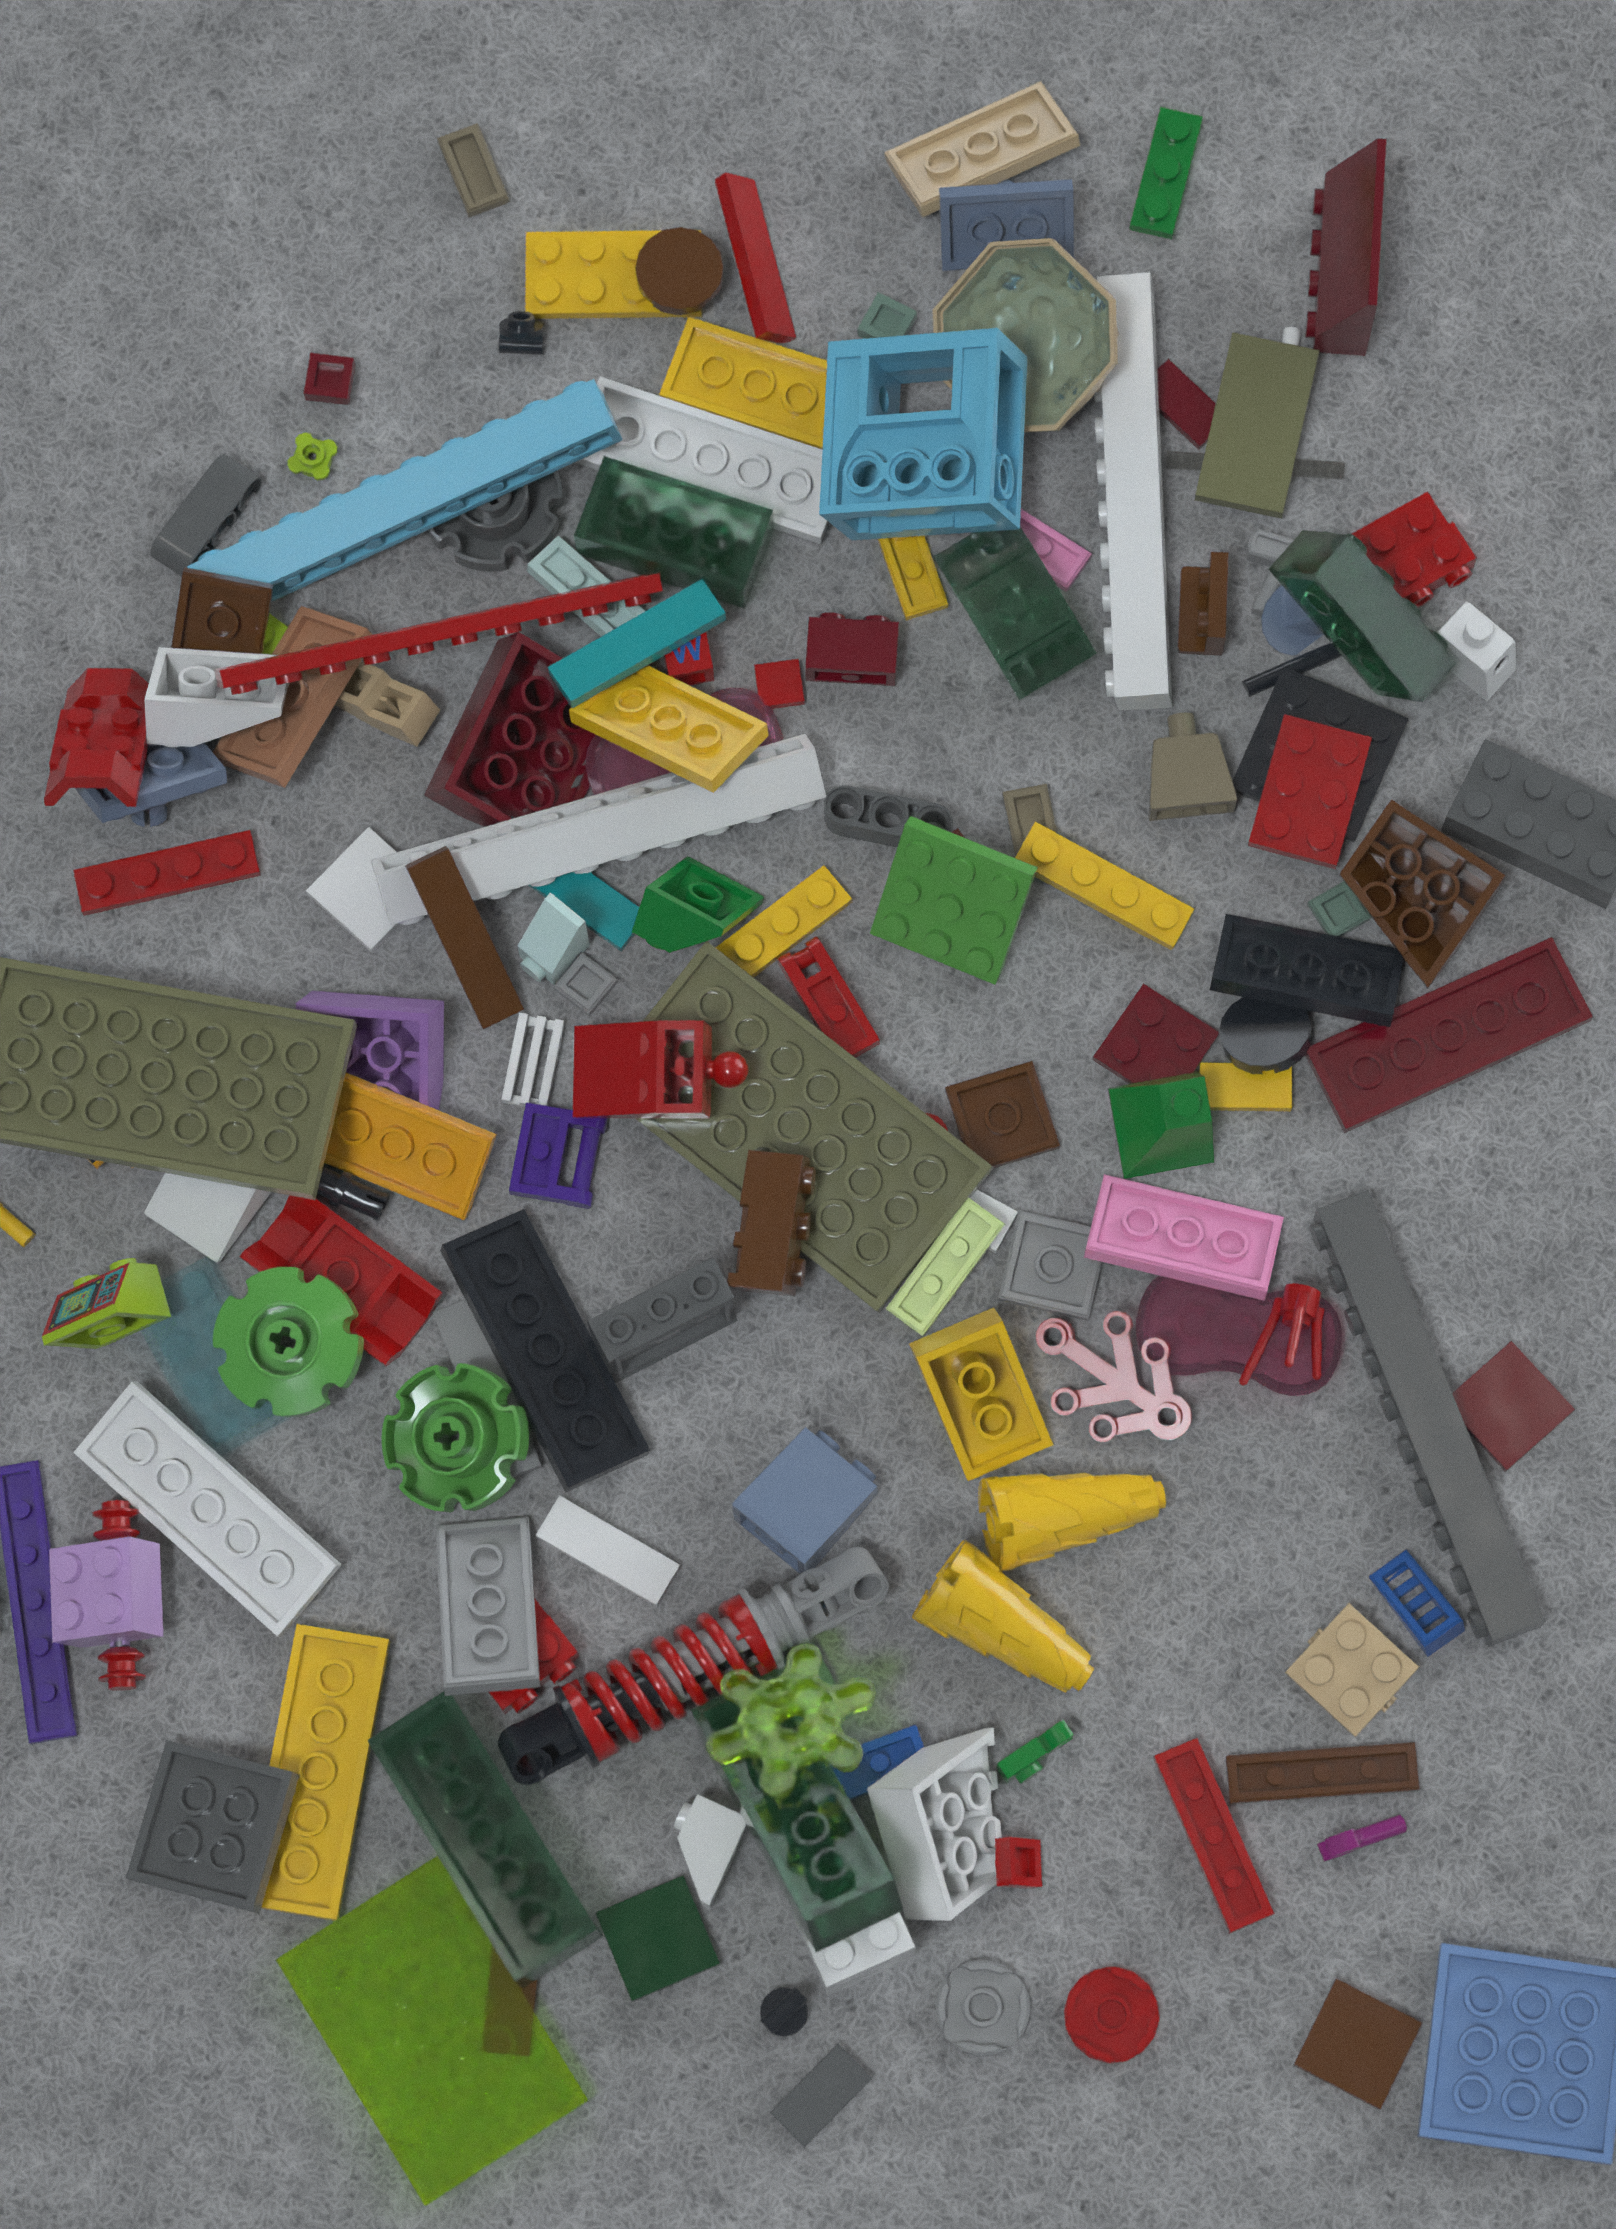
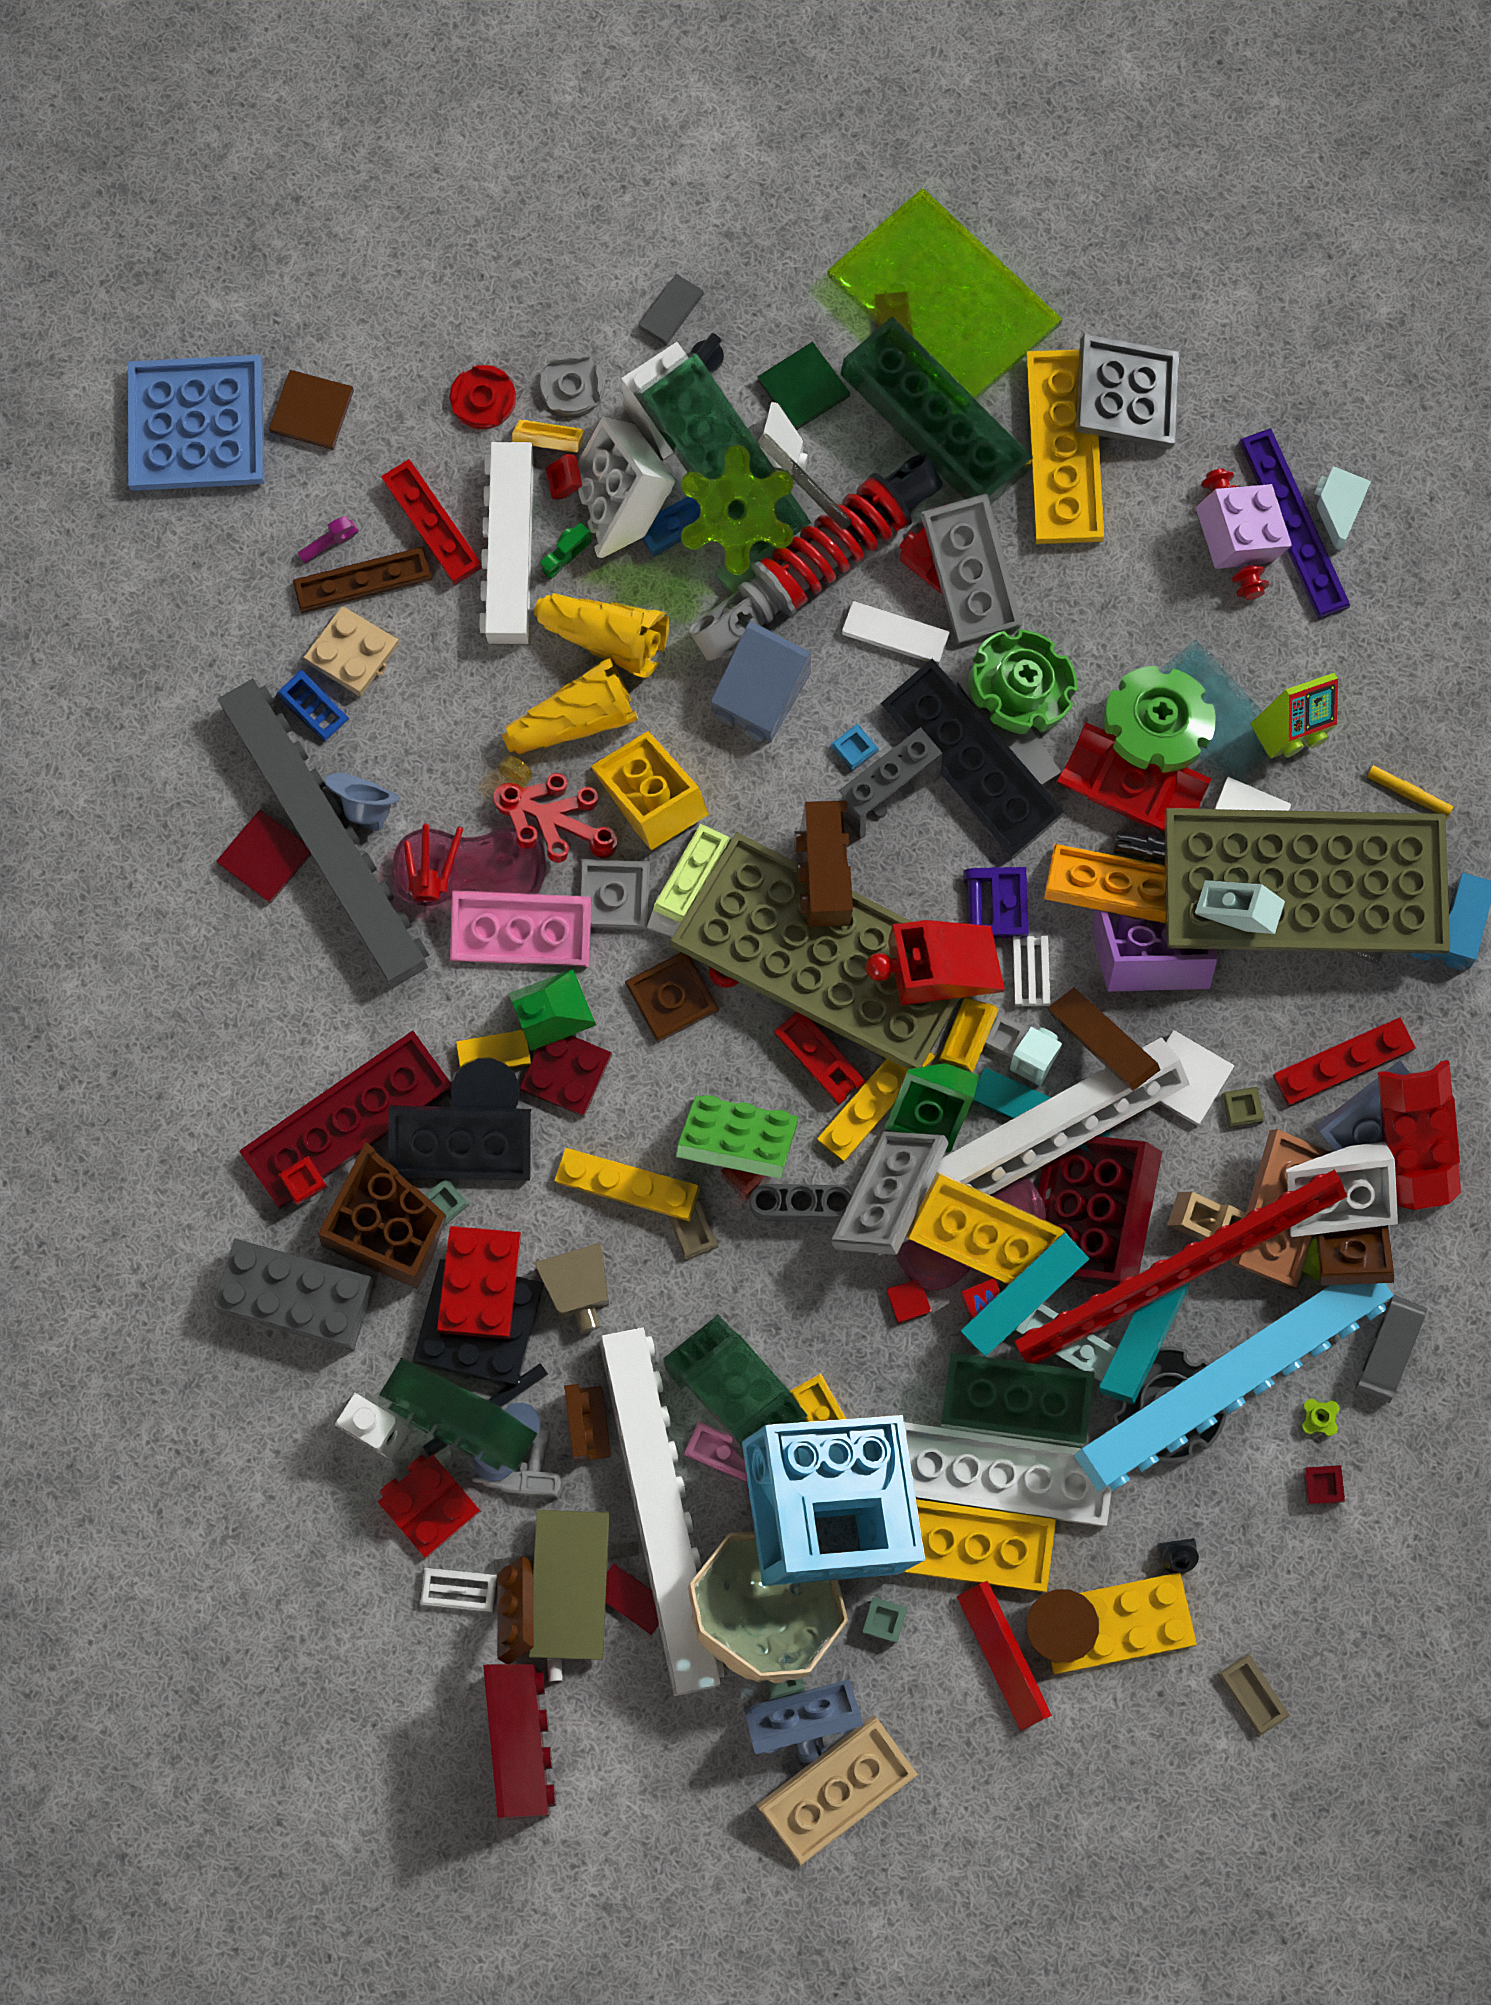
camera: 170 degrees right, 0 degrees up
(207, 1508) = (1188, 602): white plate -> none
(252, 1041) = (1240, 906): none -> light aqua slope
(308, 841) = (1243, 1107): none -> olive tile
(509, 566) = (1141, 1345): none -> teal tile
(633, 988) = (968, 1034): none -> yellow tile
(688, 1761) = (805, 481): none -> clear smoke bar
(696, 1402) = (854, 747): none -> dark azure tile
(776, 794) = (889, 1192): none -> light grey tile
(852, 650) = (857, 1335): dark red brick -> none
(1030, 1929) = (548, 435): none -> yellow tile
(1110, 1780) = (508, 543): none -> white brick
(1155, 1453) = (515, 770): none -> clear yellow tile
(1166, 173) = (681, 1802): green plate -> none
(1327, 395) = (515, 1610): none -> reddish brown plate
(1366, 1454) = (362, 799): none -> sand blue piece
(1387, 466) = (489, 1593): none -> white tile
(1515, 959) = (302, 1180): none -> red tile

